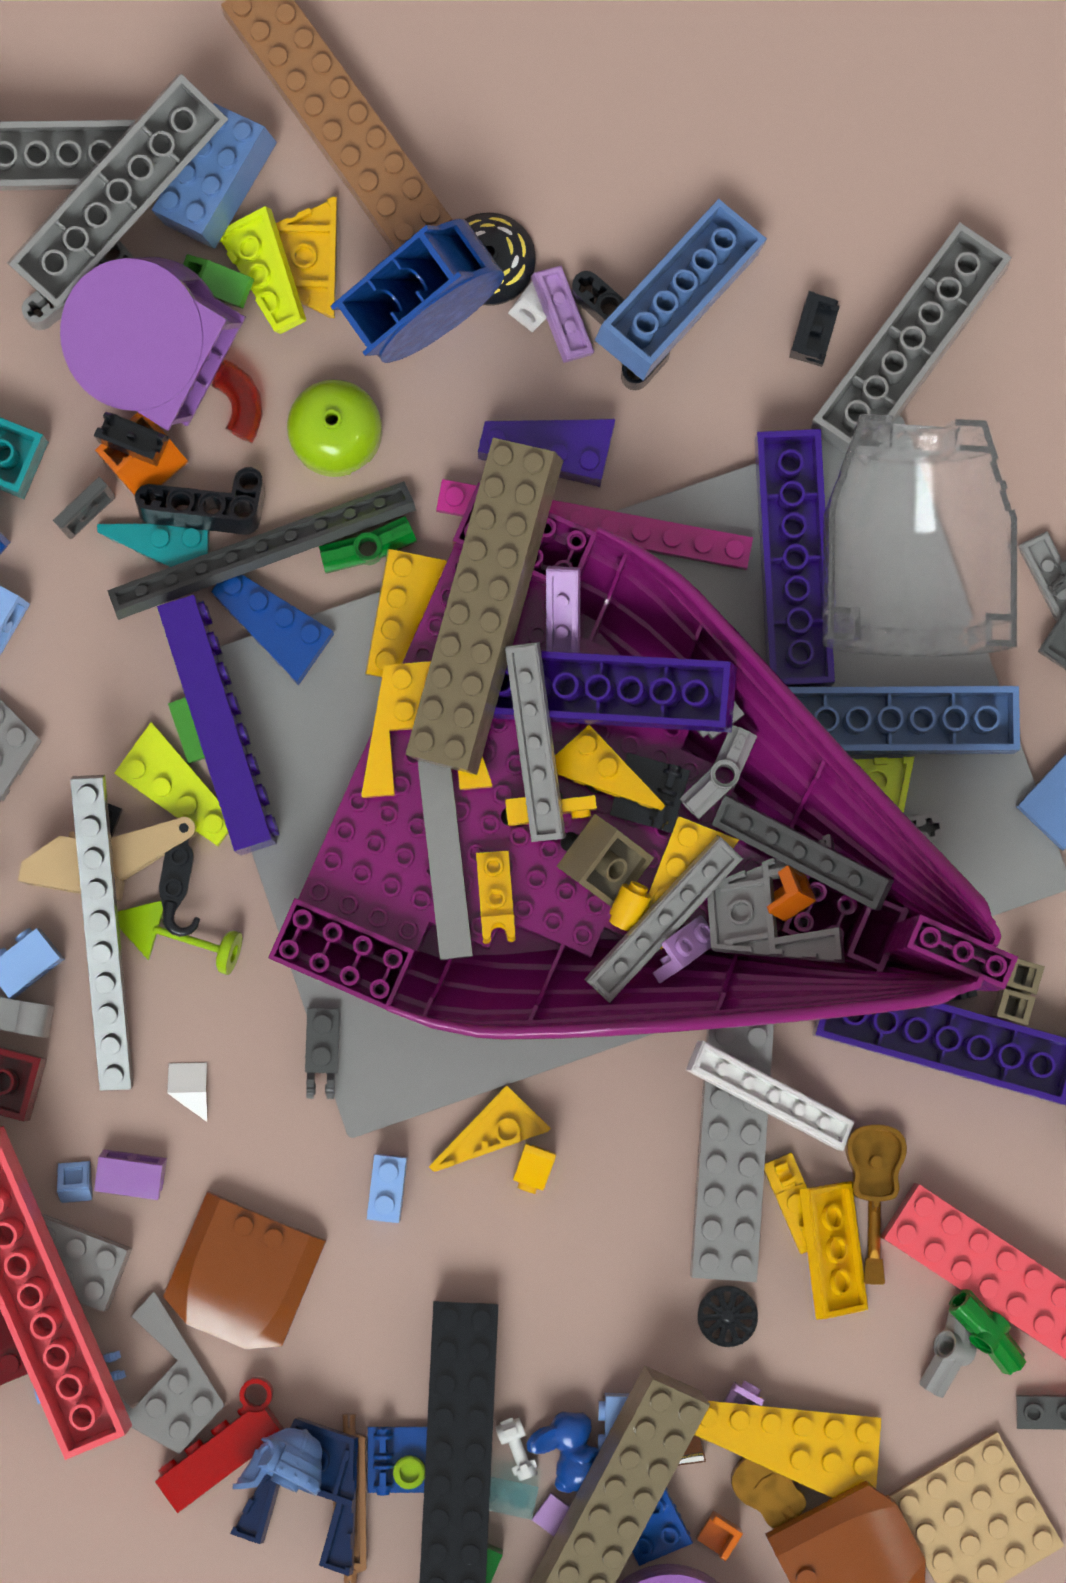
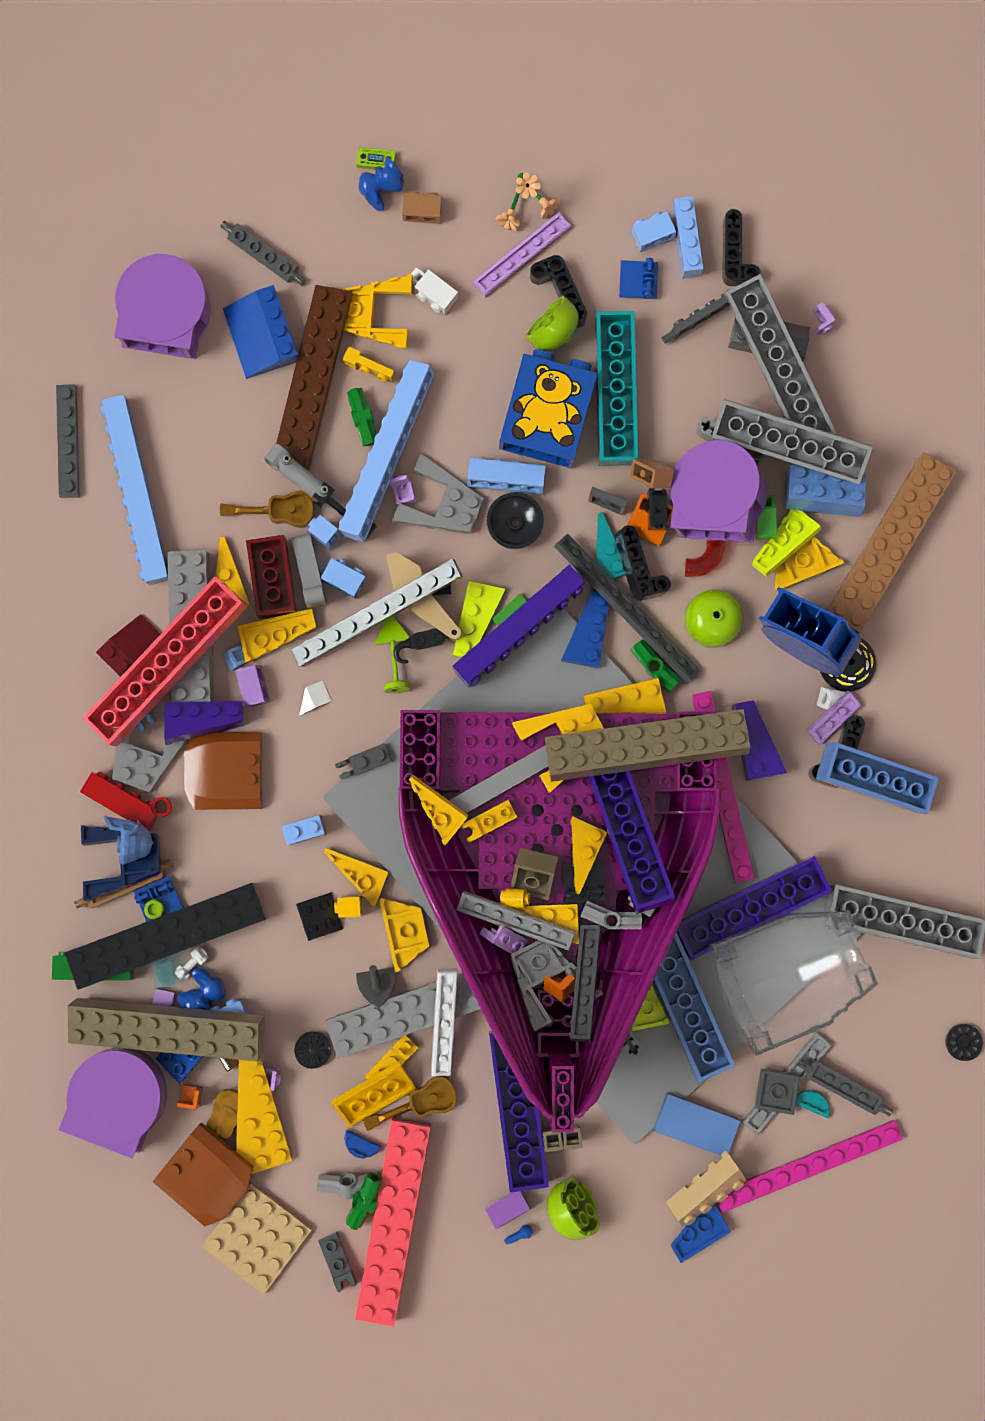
camera: 65 degrees right, 0 degrees up
(30, 660) = (515, 507): none -> black dish
(61, 1114) = (269, 634): none -> yellow wing
(72, 422) = (651, 473): none -> medium nougat brick
(145, 1277) = (196, 719): none -> dark purple wedge
(455, 959) = (444, 815): none -> yellow wing
(529, 1220) = (319, 916): none -> black hinge
(535, 742) = (583, 806): light grey tile -> none
(563, 609) = (664, 790): lavender tile -> none
(578, 807) = (542, 815): yellow plate -> none
(607, 1099) = (404, 931): none -> yellow wing
(669, 1175) = (376, 984): none -> dark grey shield
(815, 329) = (889, 863): black hinge -> none
(903, 1304) = (360, 1146): none -> blue tile

